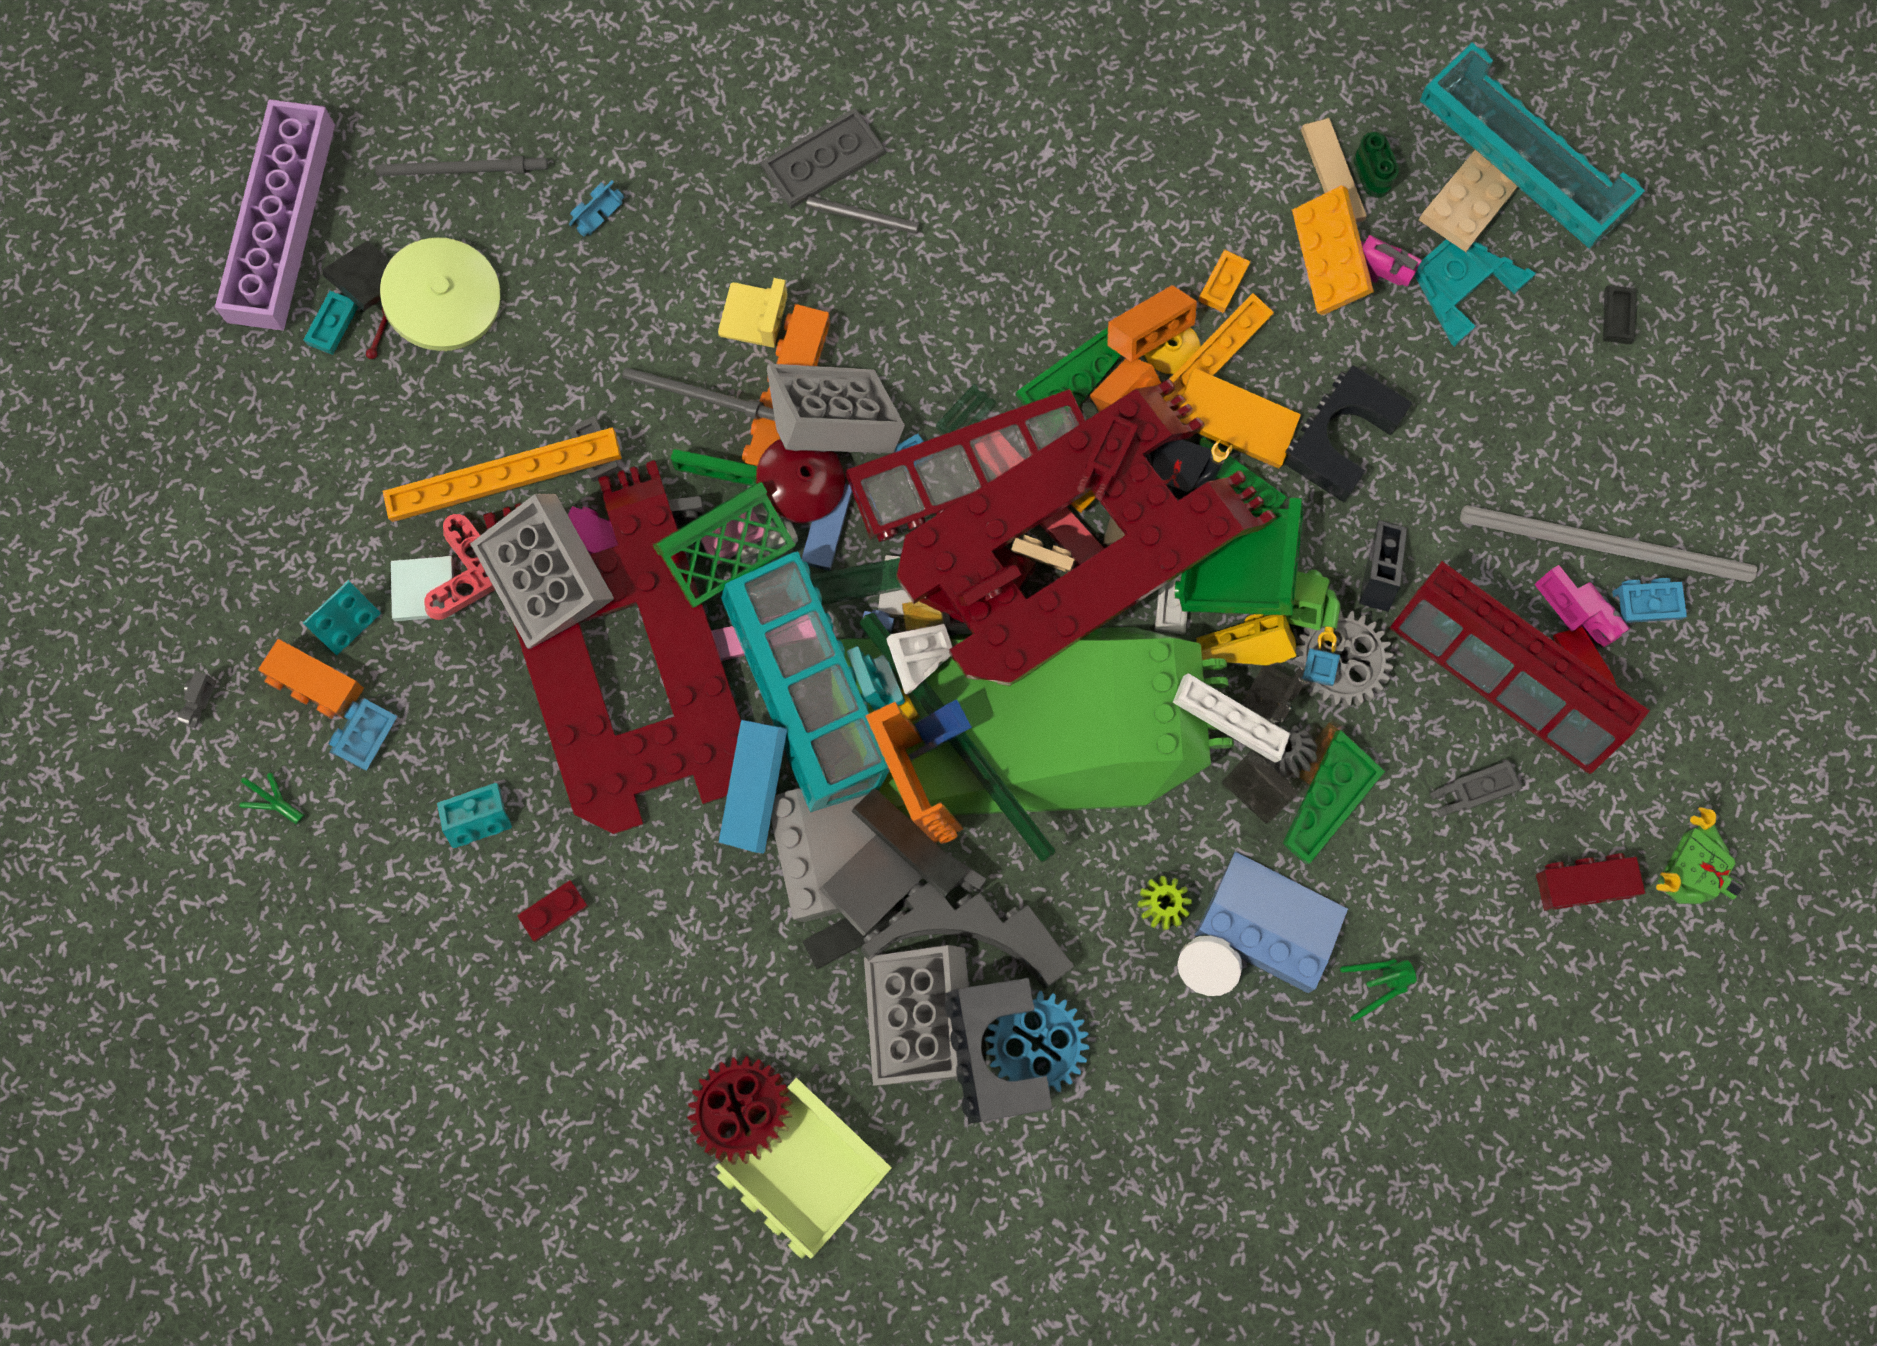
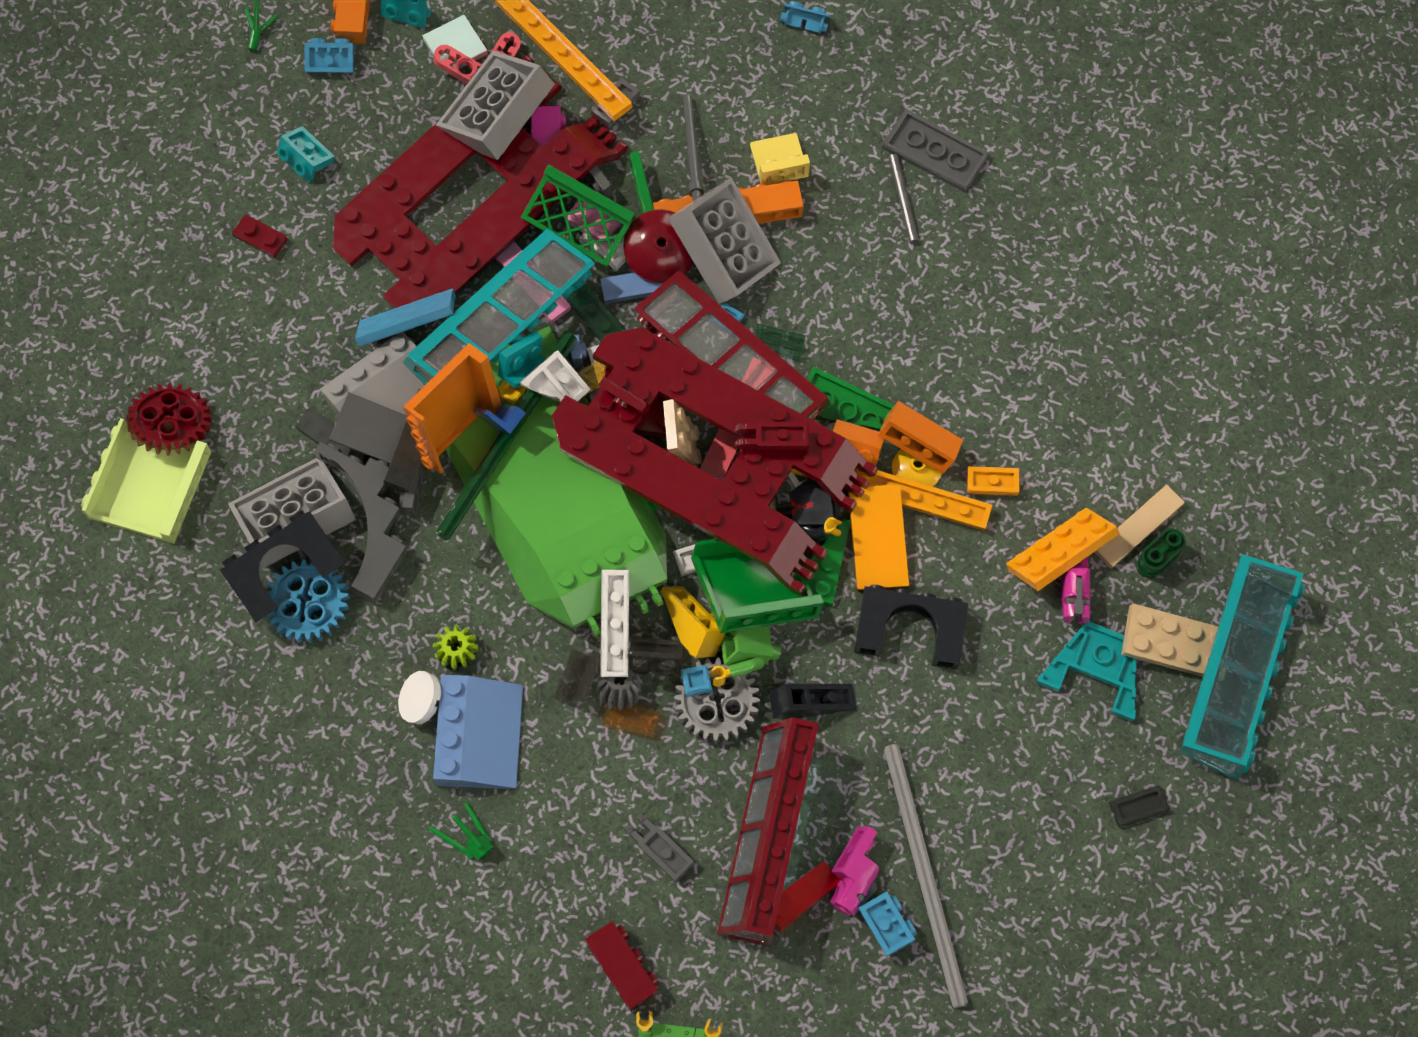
camera: 65 degrees right, 5 degrees down
(1334, 793) = (606, 738): green wing -> none

